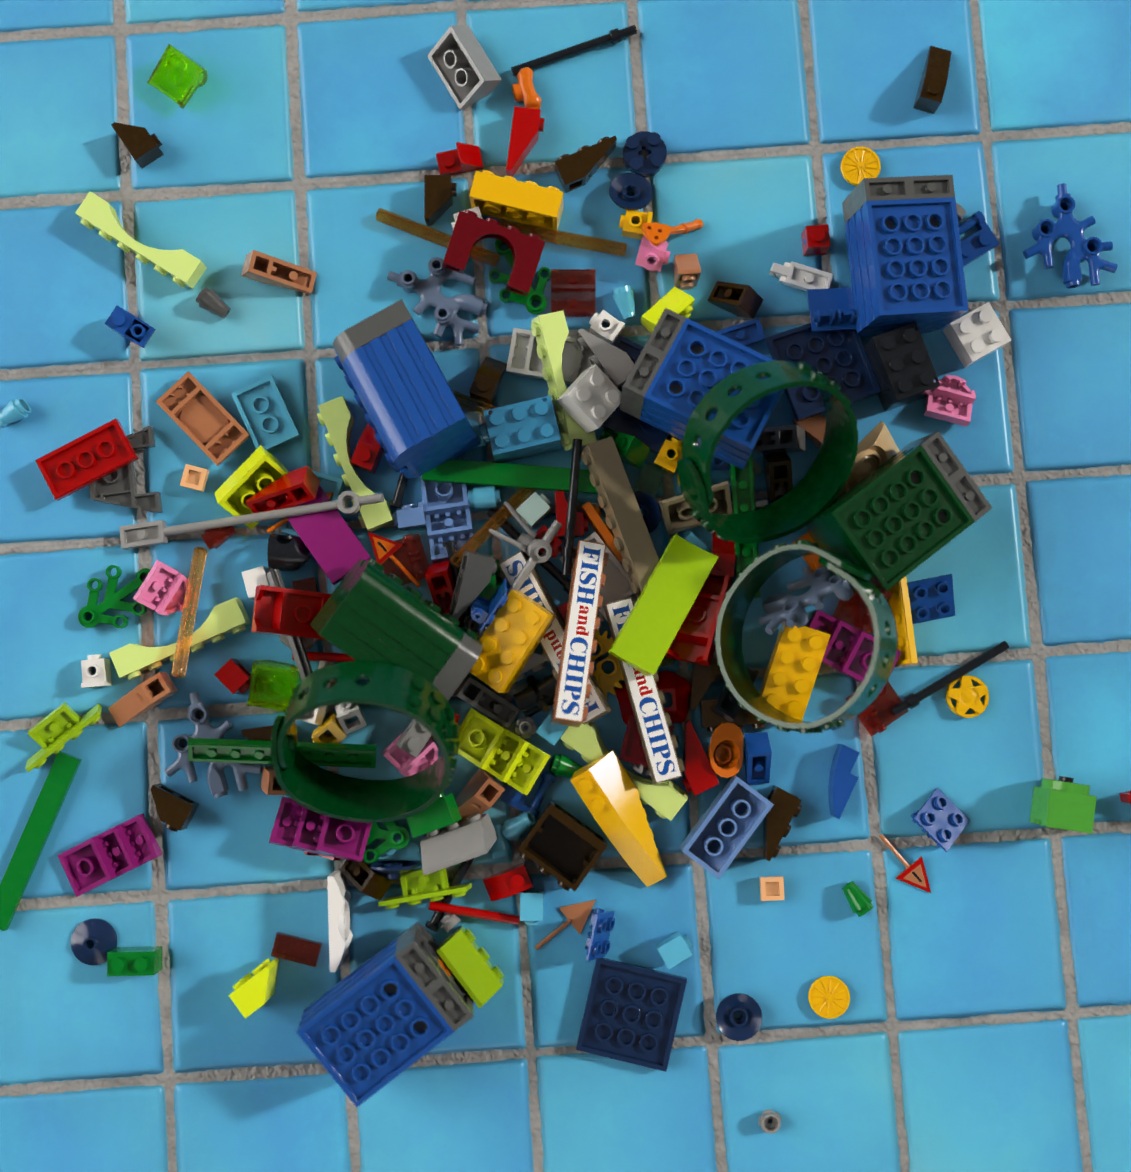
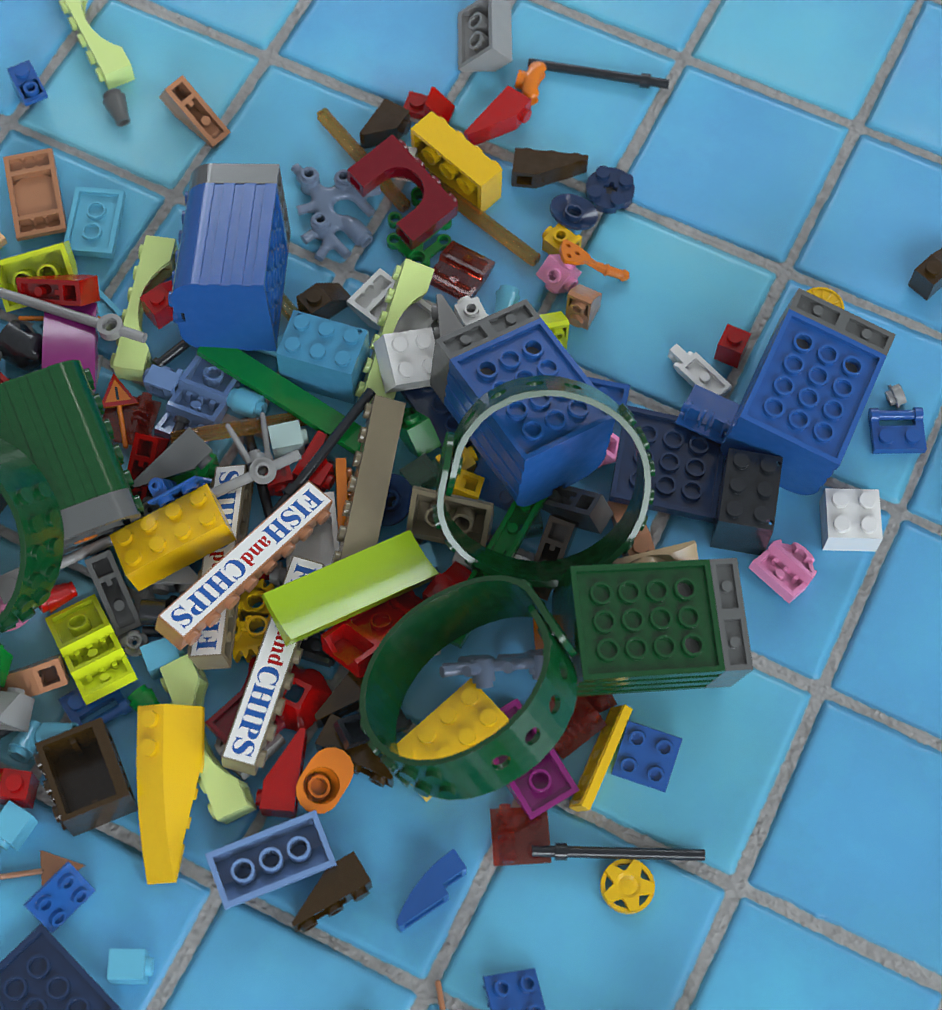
camera: 30 degrees right, 20 degrees down
(736, 299) = (618, 358): dark brown slope -> none
(757, 758) = (352, 813): blue slope -> none
(771, 888) = (279, 964): light nougat plate -> none

